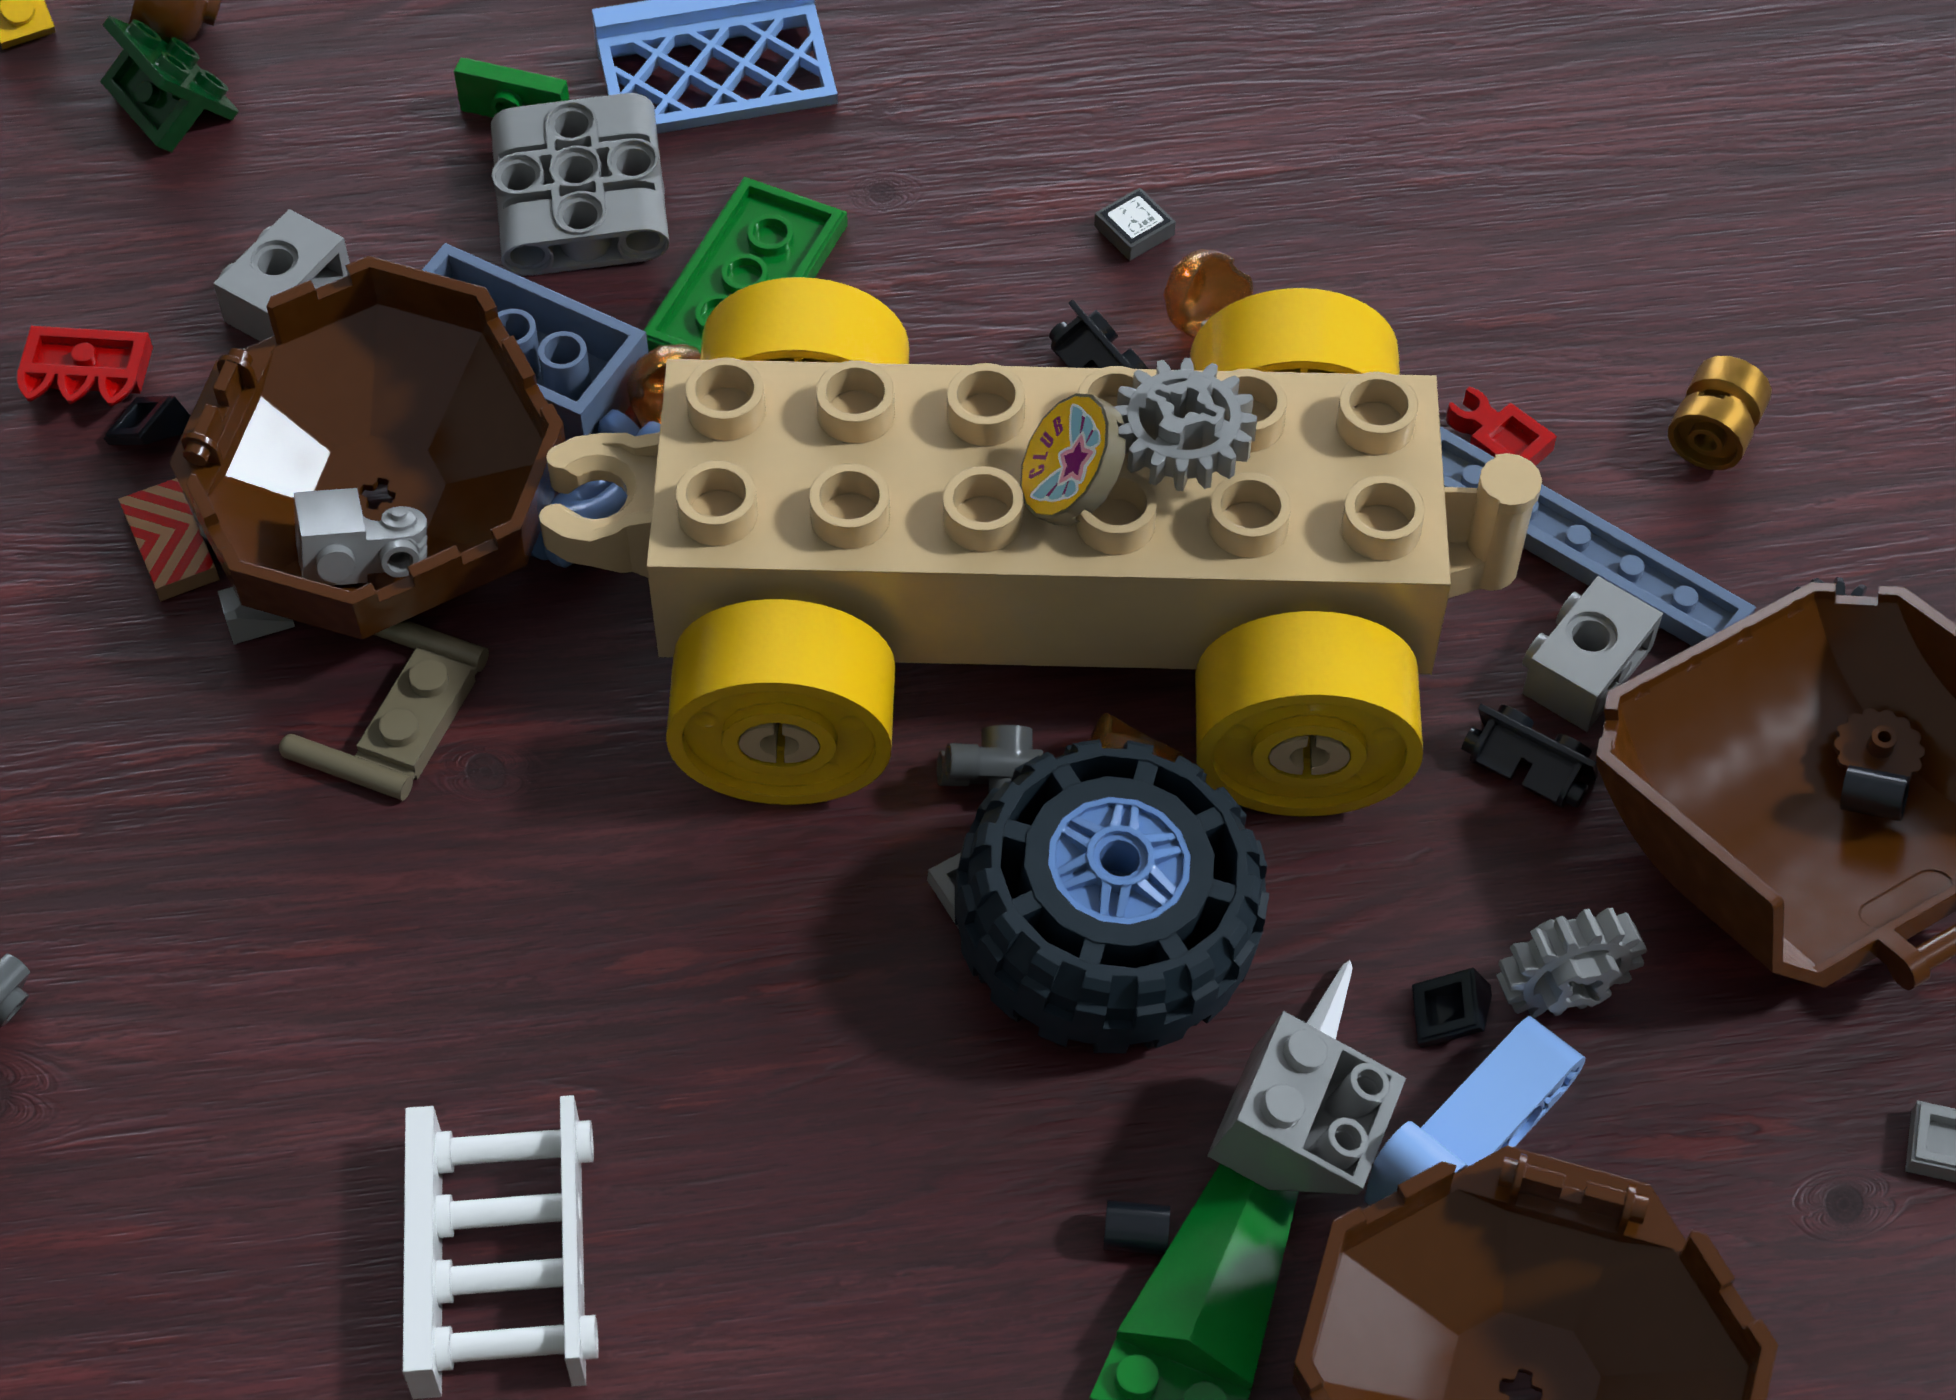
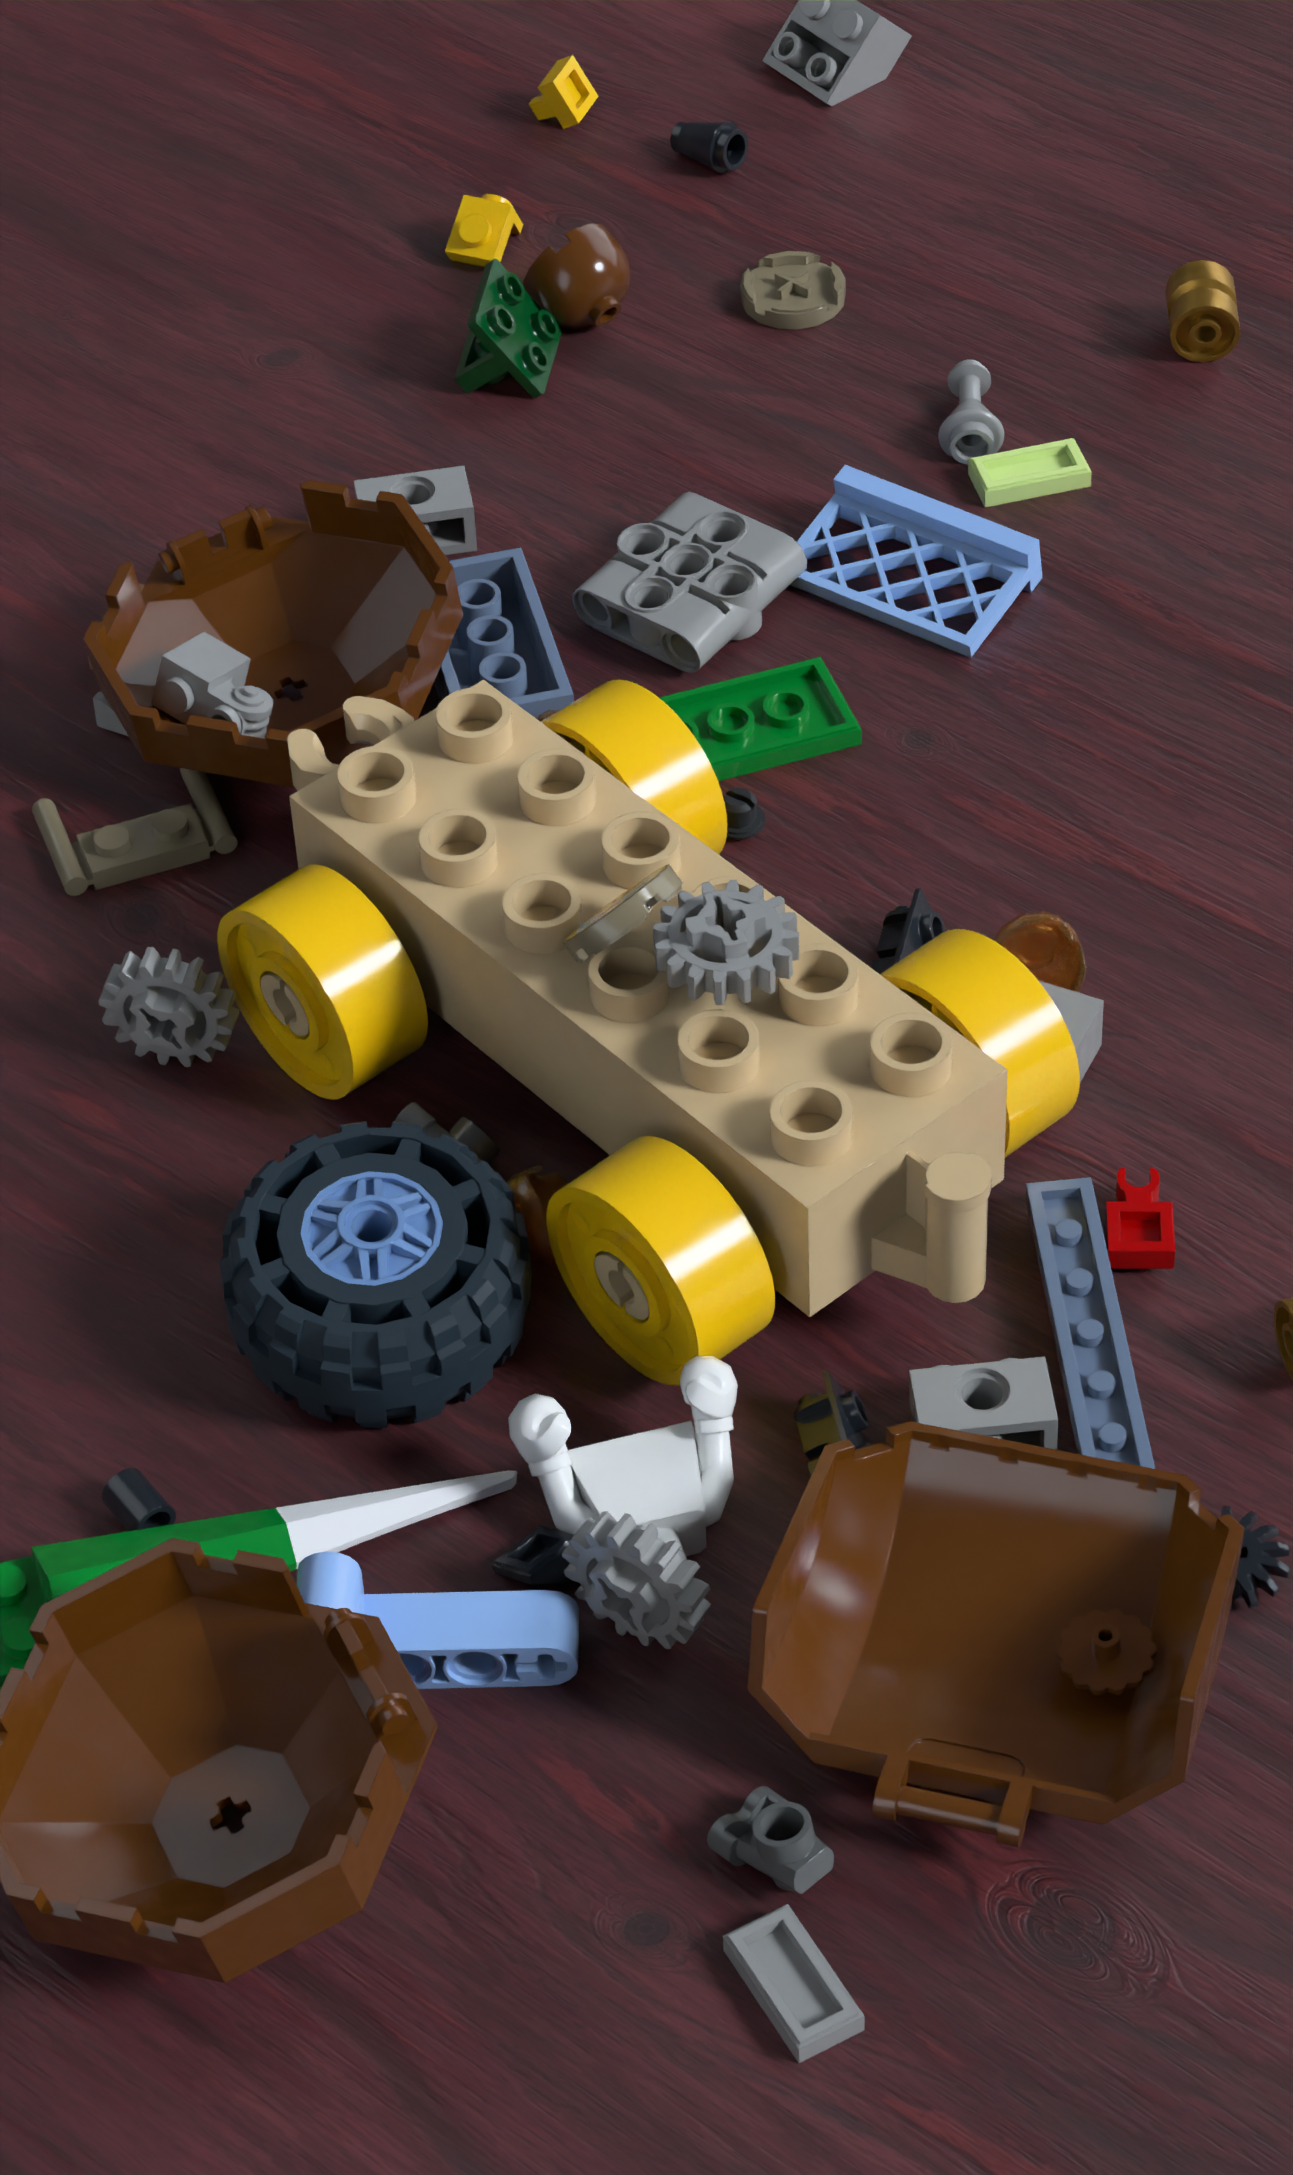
camera: 50 degrees right, 10 degrees down
(83, 362) = (223, 482): red plate -> none
(492, 88) = (722, 482): green plate -> none
(659, 821) = (169, 1007): none -> light grey gear
(1135, 224) = (1071, 884): tile -> none
(1306, 1112) = (310, 1495): light grey slope -> none
(1469, 891) = (656, 1476): none -> white torso
(1848, 1068) = (773, 1839): none -> dark grey plate
(1875, 793) = (1046, 1670): black hinge -> none

